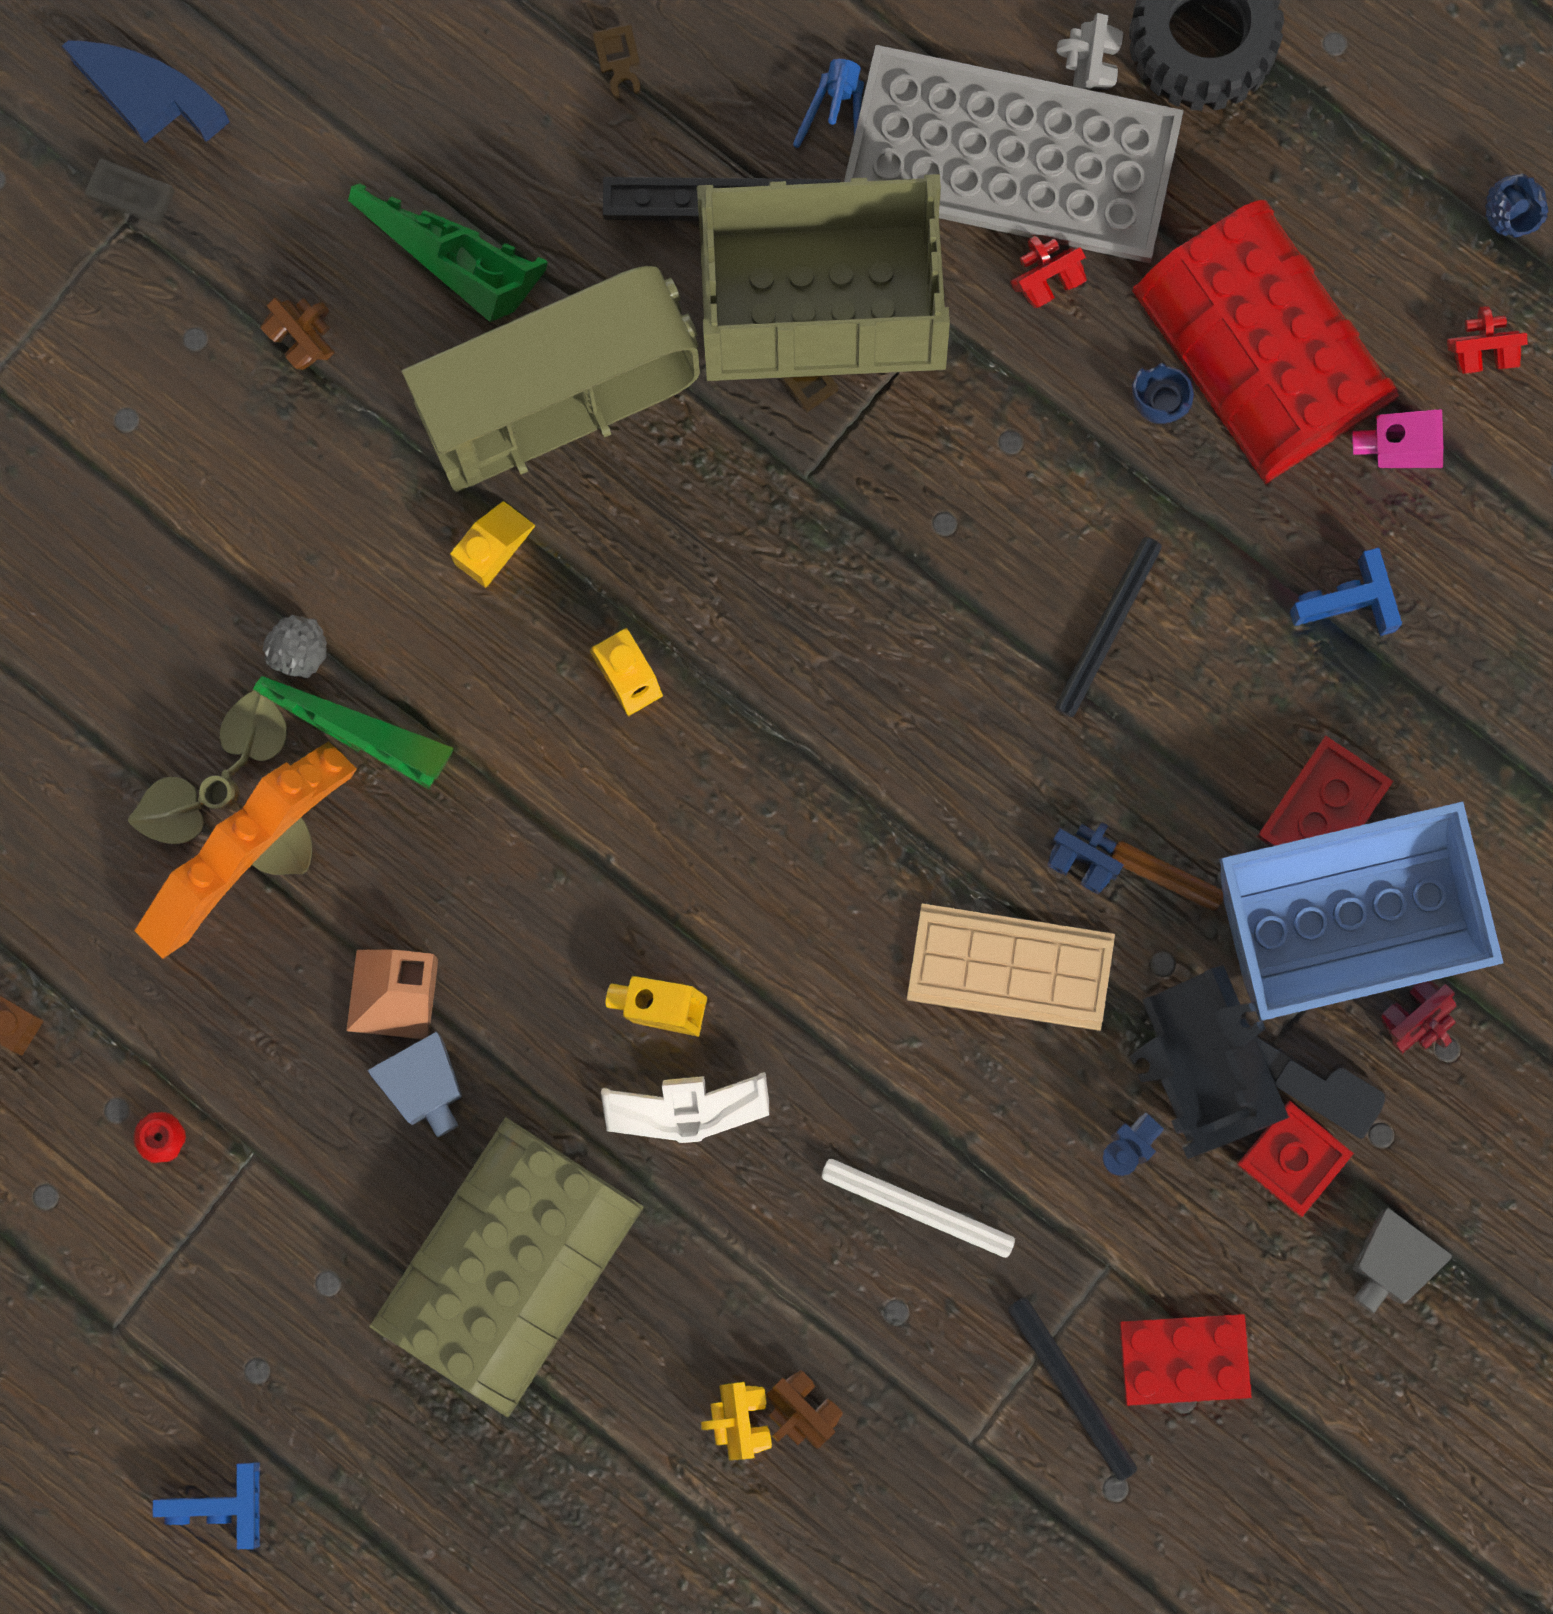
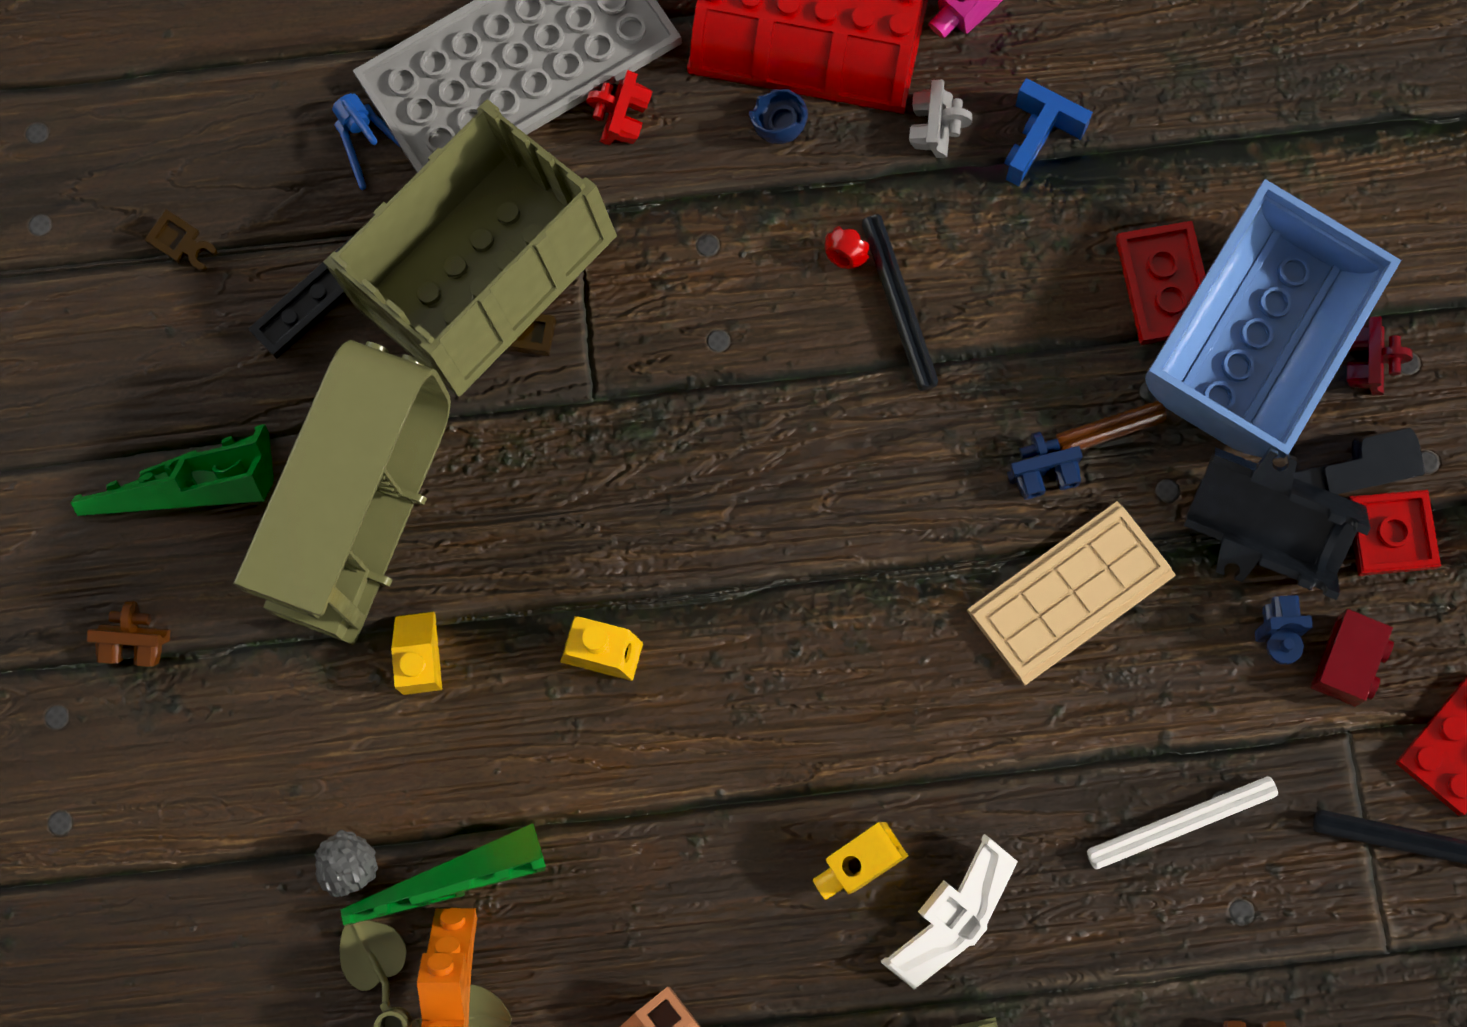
camera: 40 degrees left, 5 degrees down
(1107, 546) = (846, 248): none -> red plate
(1165, 1216) = (1353, 658): none -> dark red brick
(1285, 517) = (944, 119): none -> light grey hips

